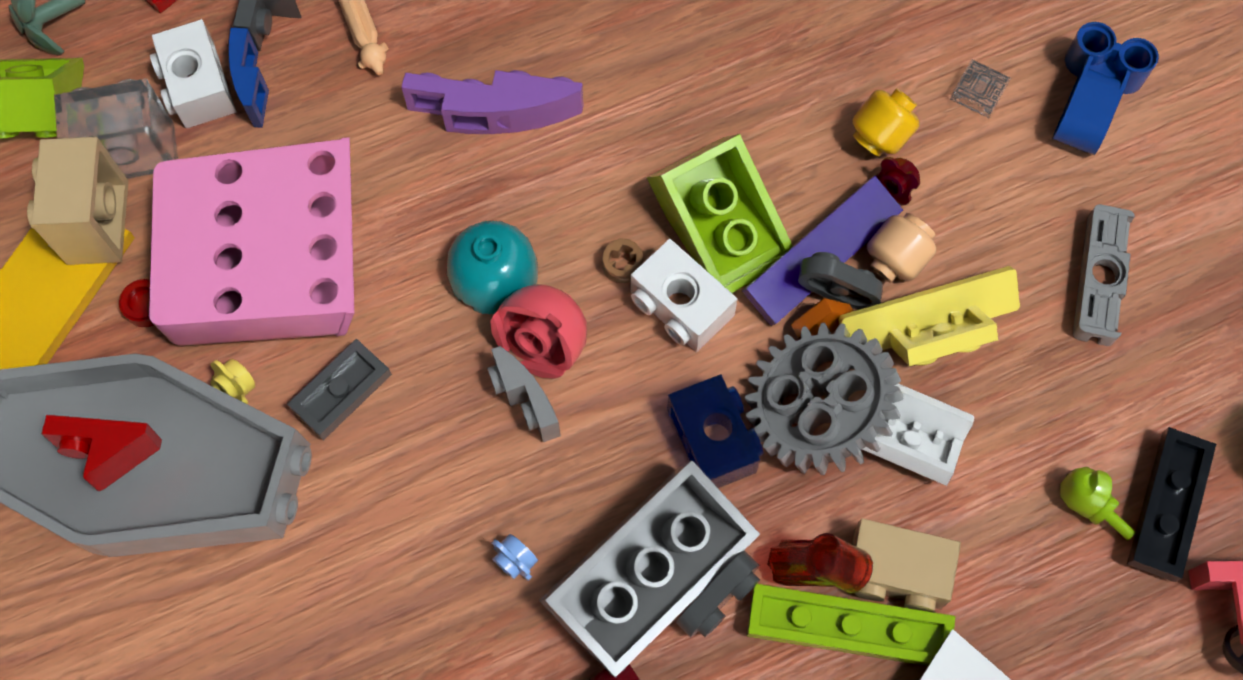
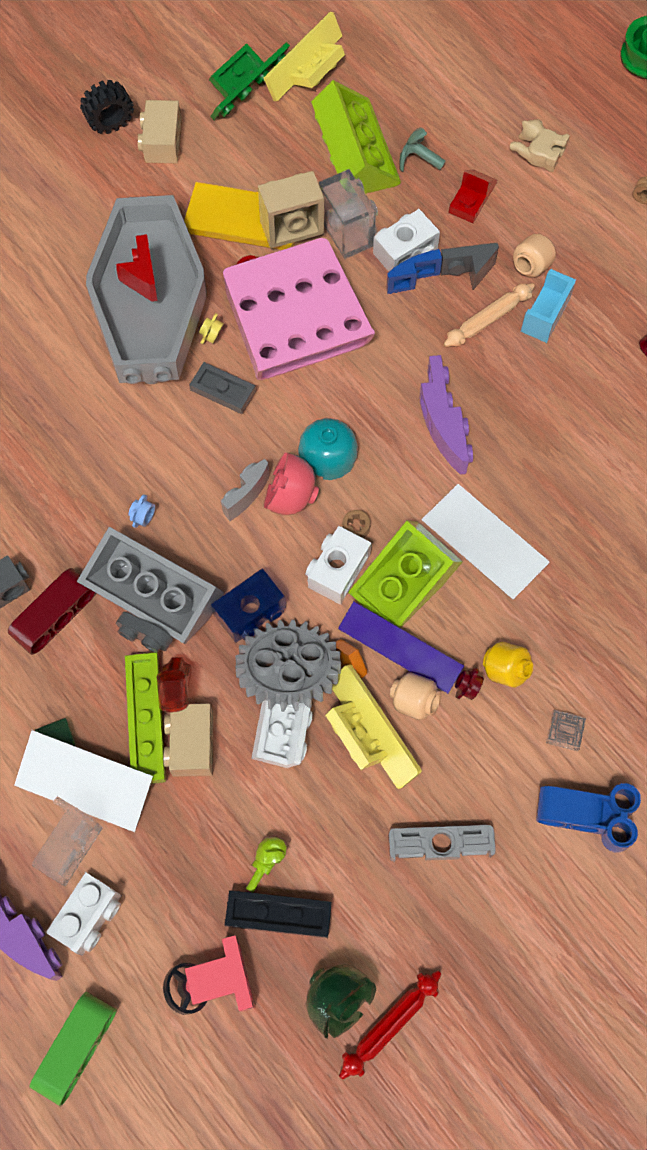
camera: 75 degrees right, 0 degrees up
(689, 110) = (485, 541): none -> white sticker
(840, 282) = (375, 645): dark grey plate -> none

